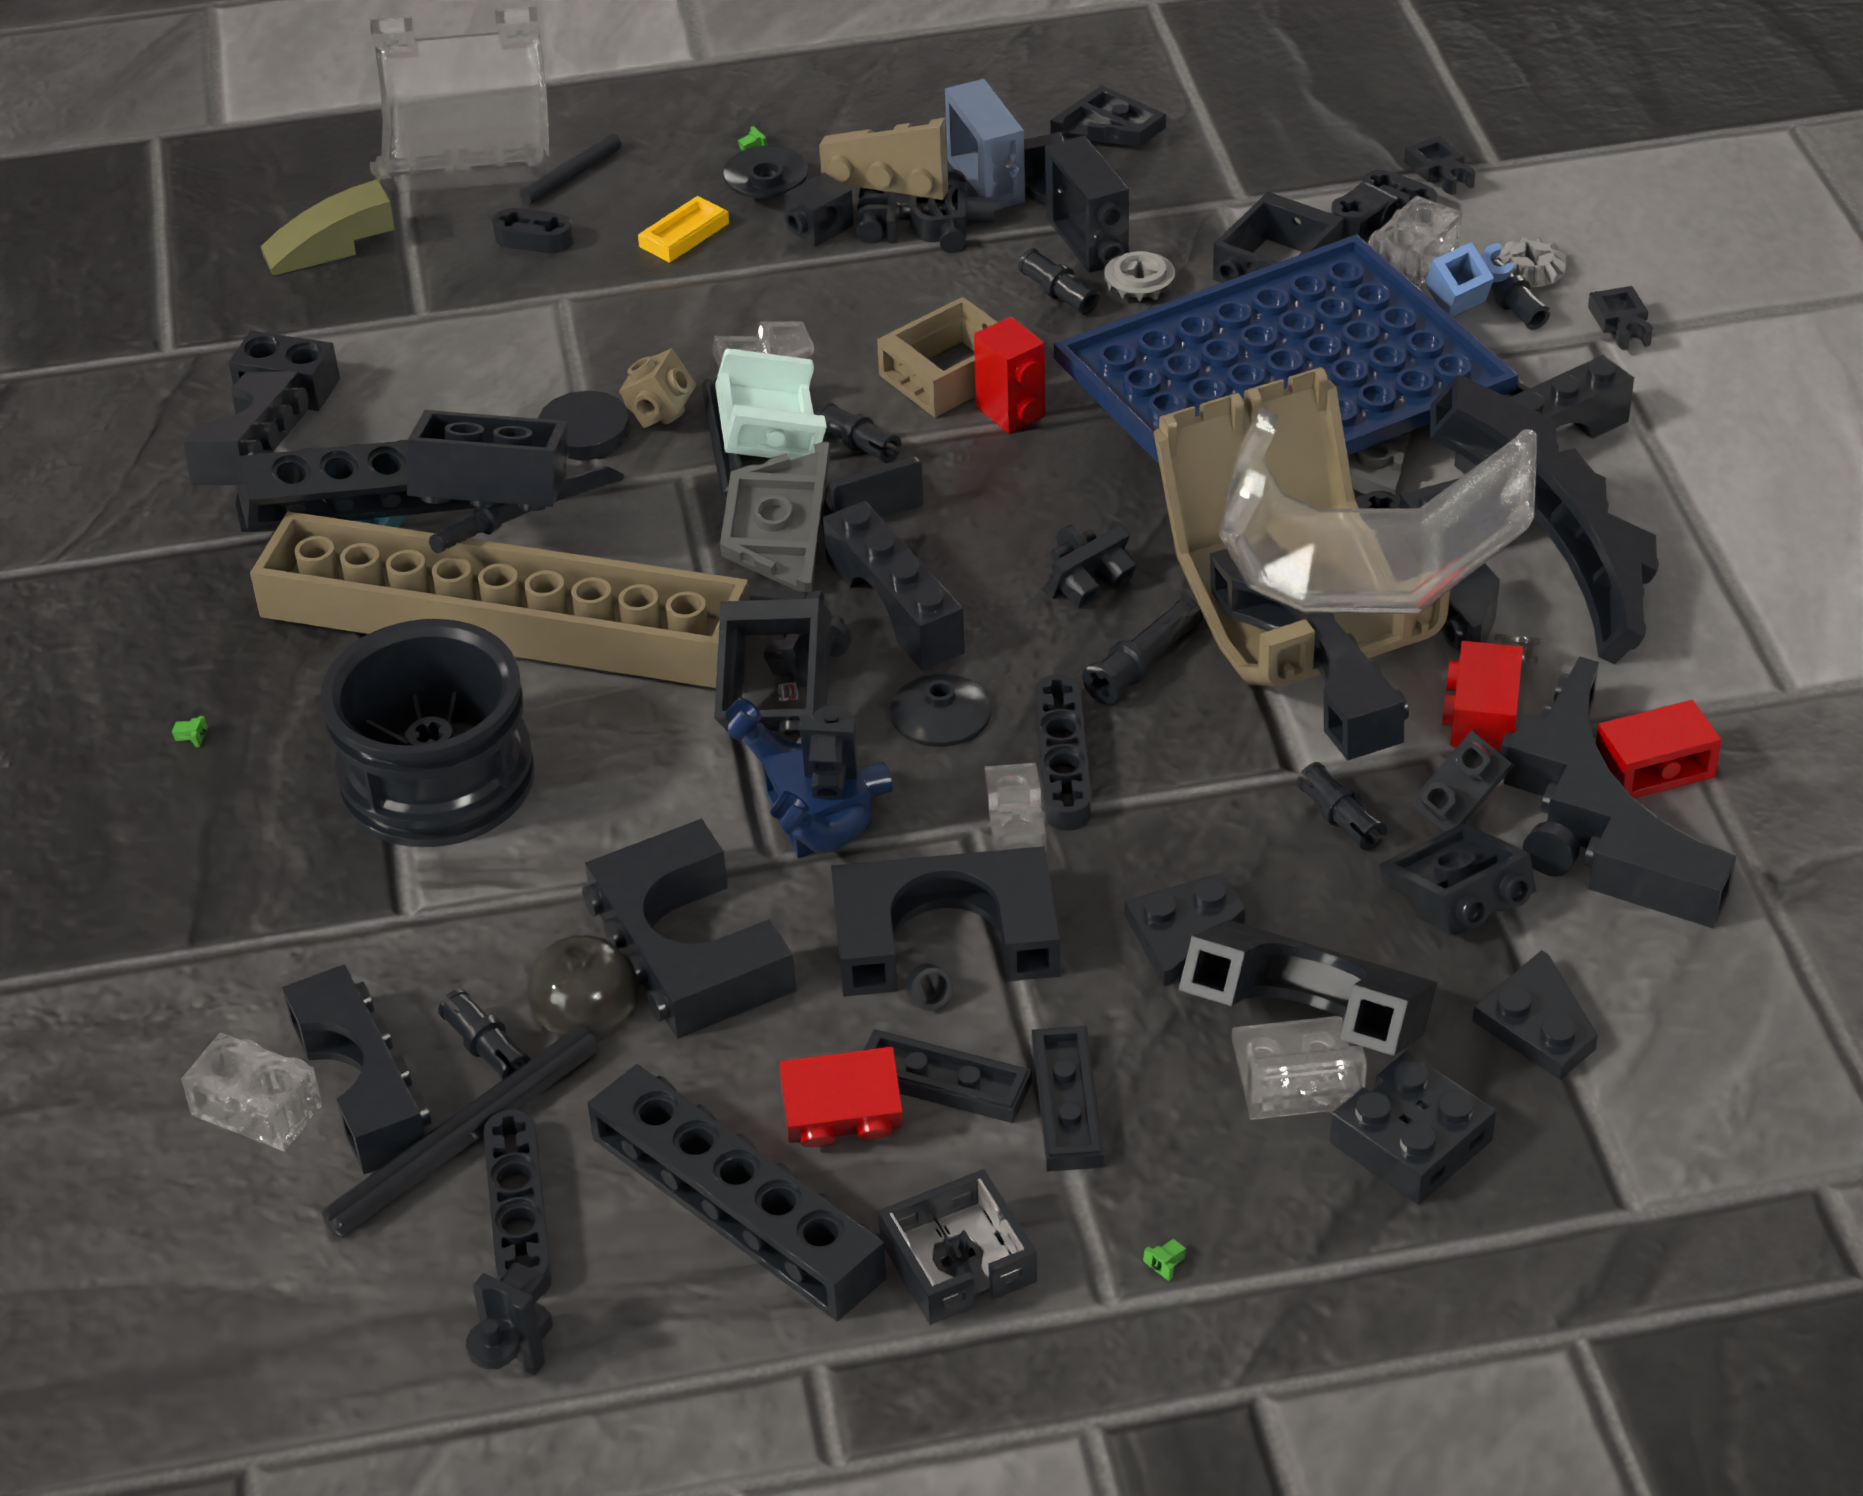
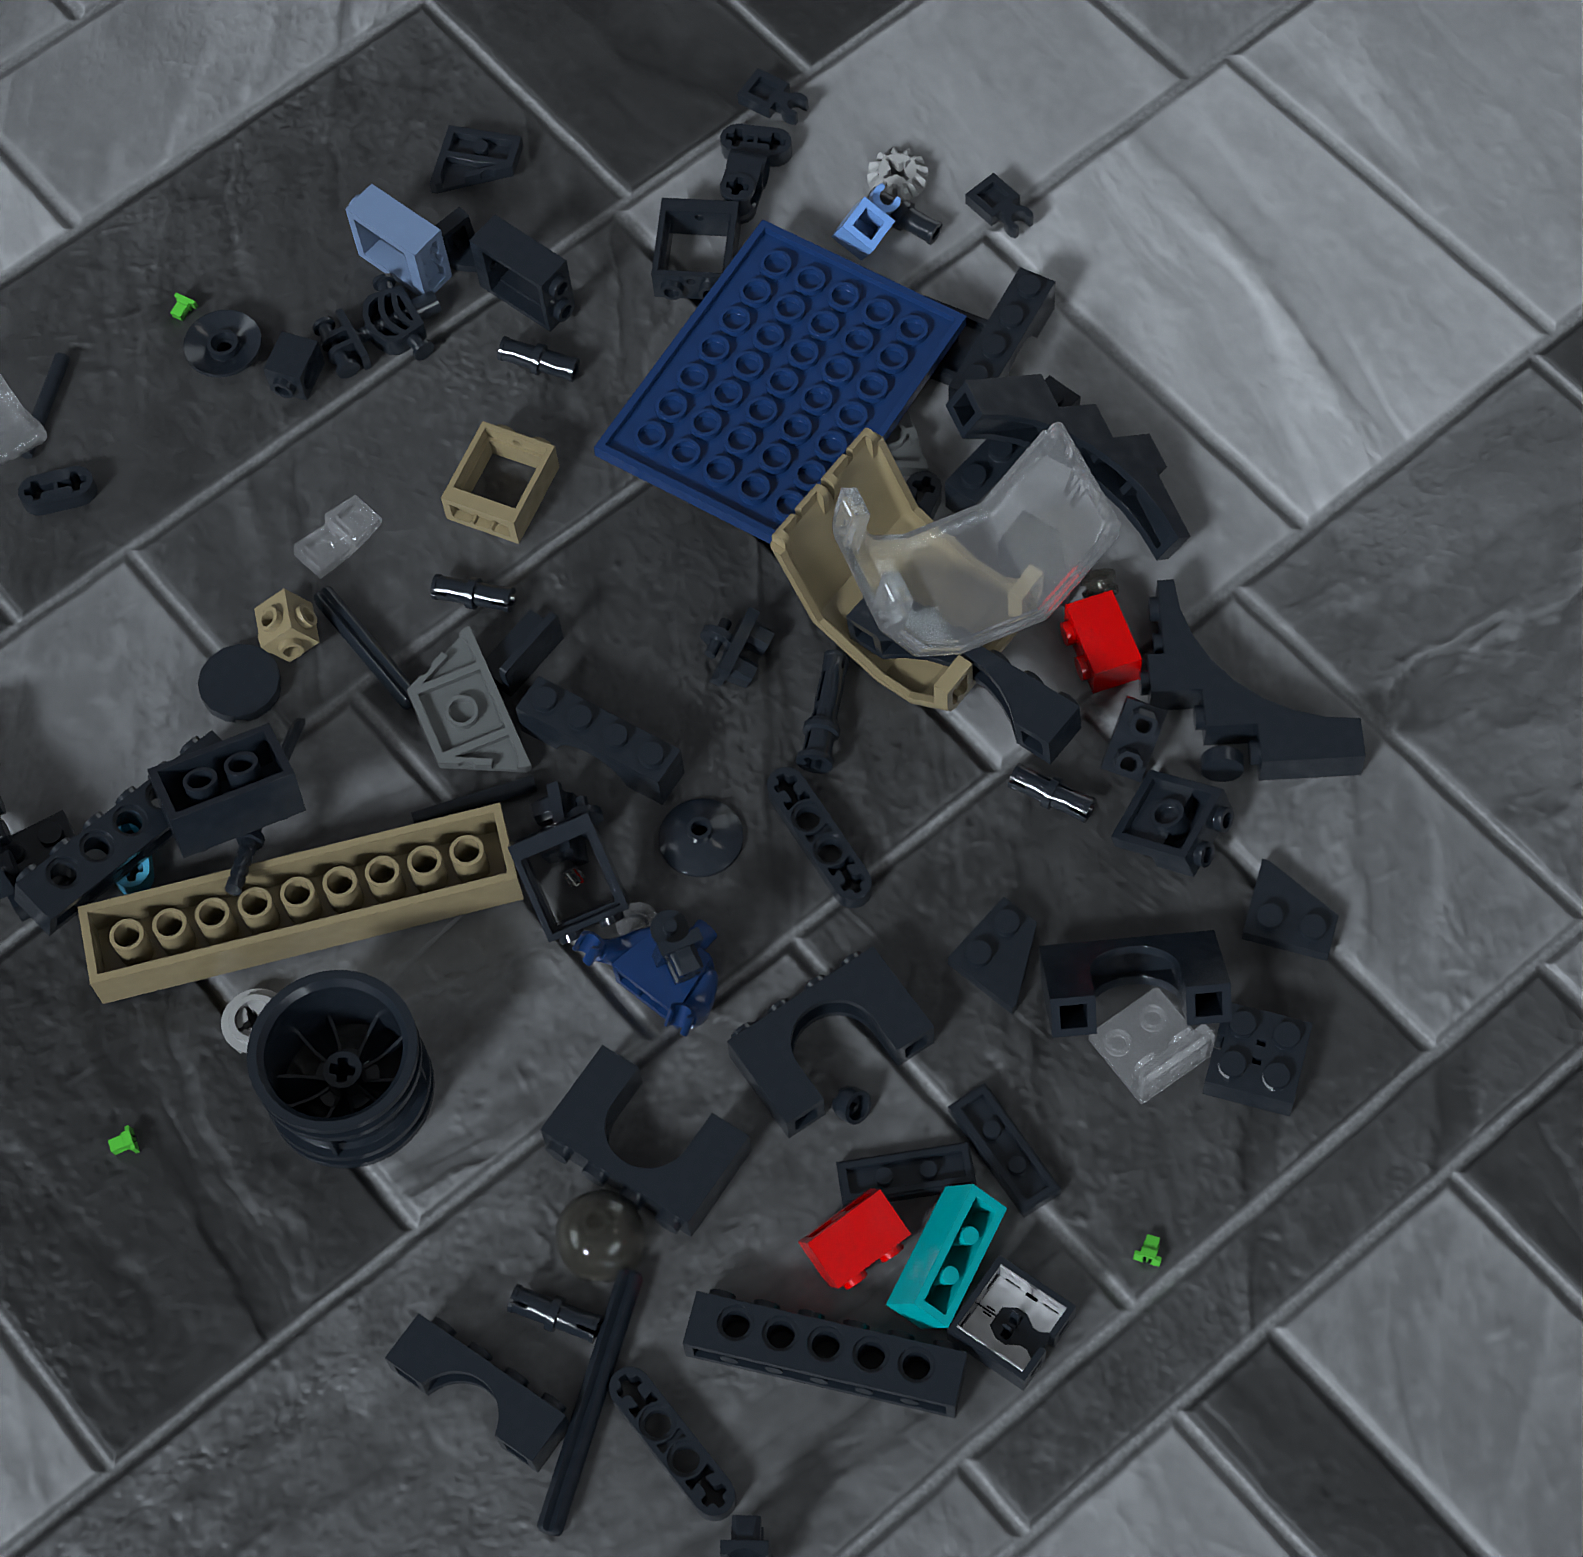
camera: 25 degrees left, 20 degrees up
(252, 1091) = (414, 1465): clear brick -> none
(683, 229) = (186, 432): yellow tile -> none
(767, 405) = (389, 605): light aqua panel -> none
(893, 160) = (341, 300): dark tan wing -> none
(927, 1150) = (946, 1256): none -> teal brick
(1010, 374) = (571, 488): red brick -> none
(1015, 806) = (816, 909): clear slope -> none
(1155, 269) = (605, 309): light grey gear -> none
(1417, 237) = (801, 188): clear brick -> none
(1660, 748) = (1249, 634): red brick -> none

